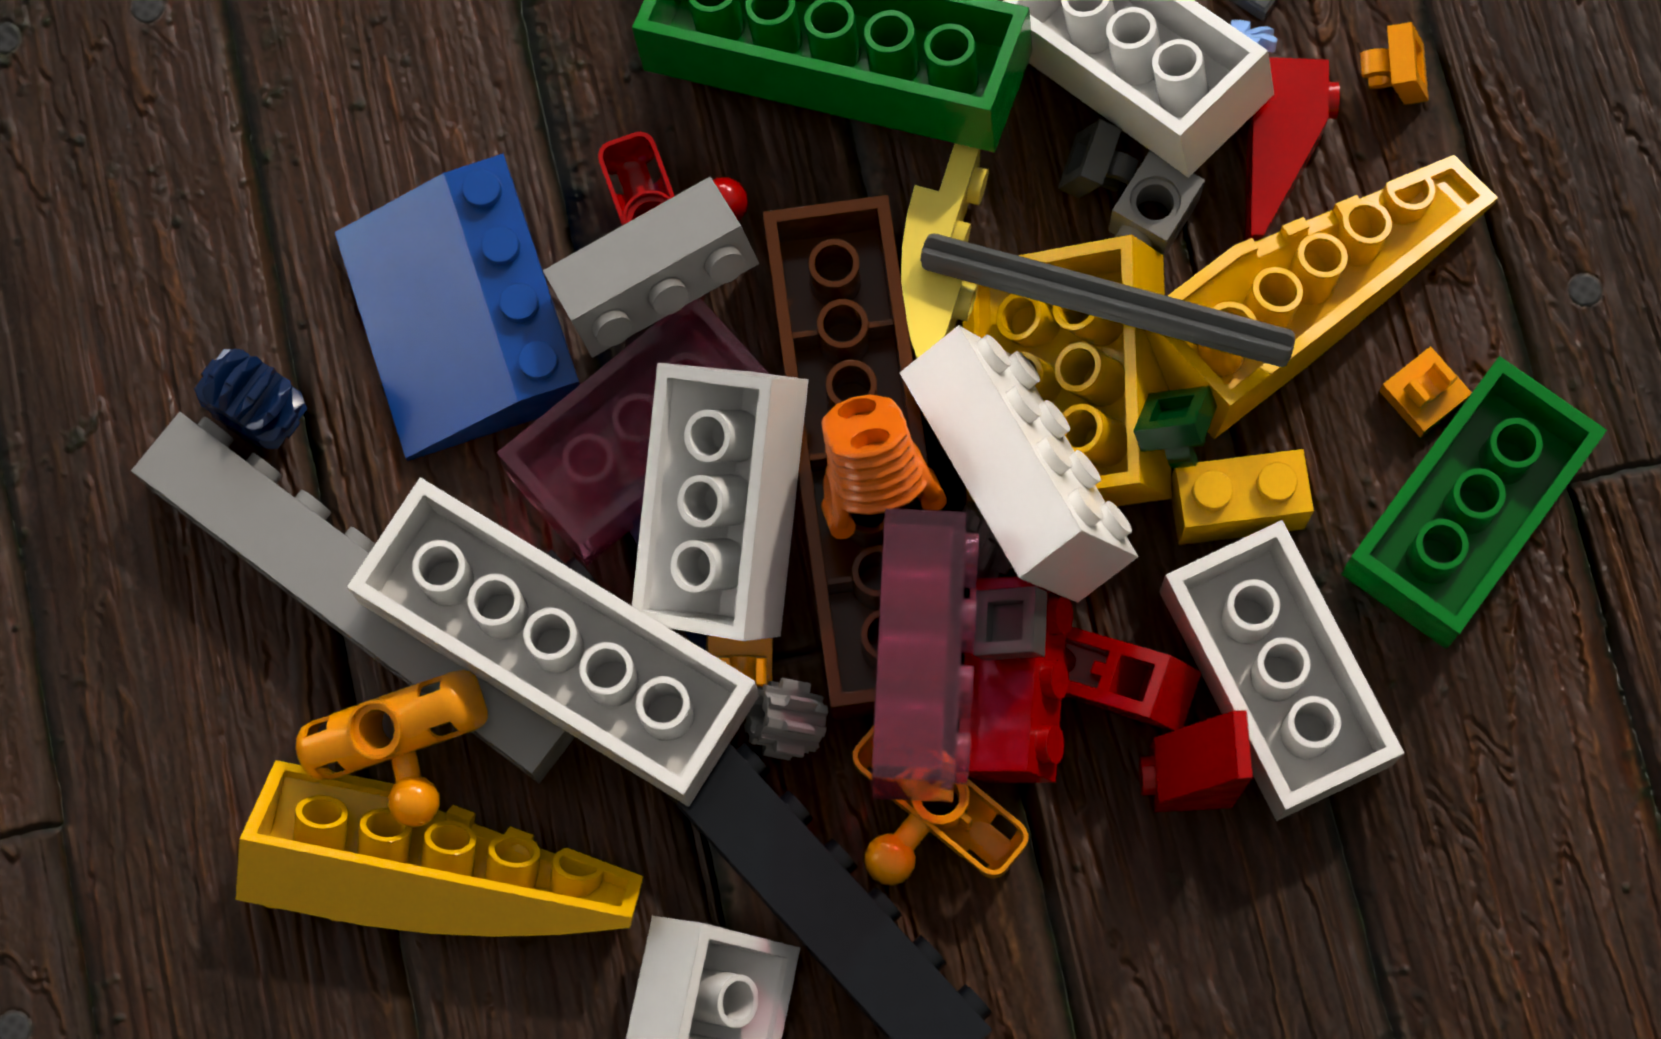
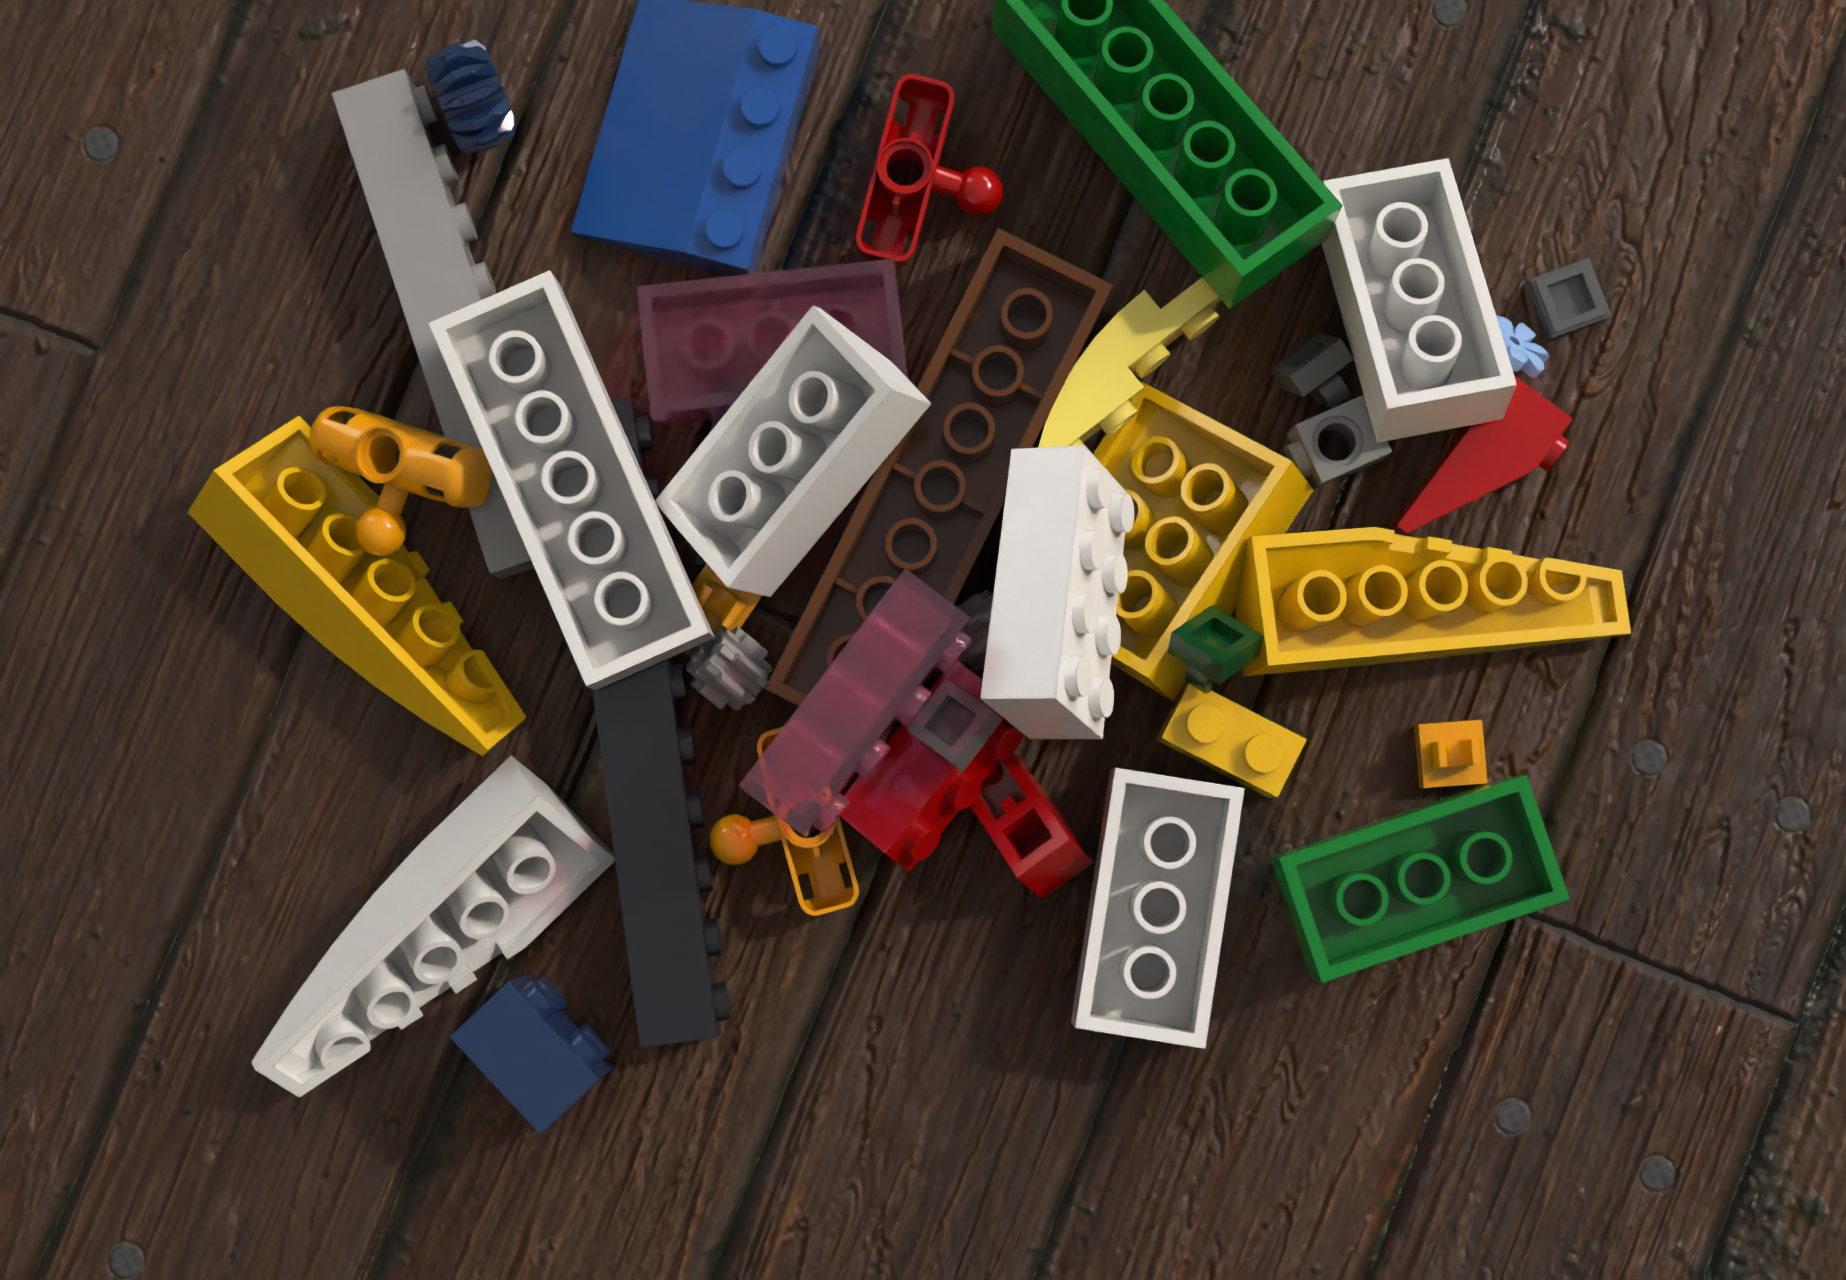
camera: 30 degrees right, 10 degrees up
(651, 266) = (869, 214): light grey brick -> none
(872, 464) = (933, 515): orange piece -> none
(1108, 300) = (1230, 506): dark grey axle -> none
(1199, 765) = (1029, 941): red slope -> none
(1398, 66) = (1634, 462): light orange tile -> none

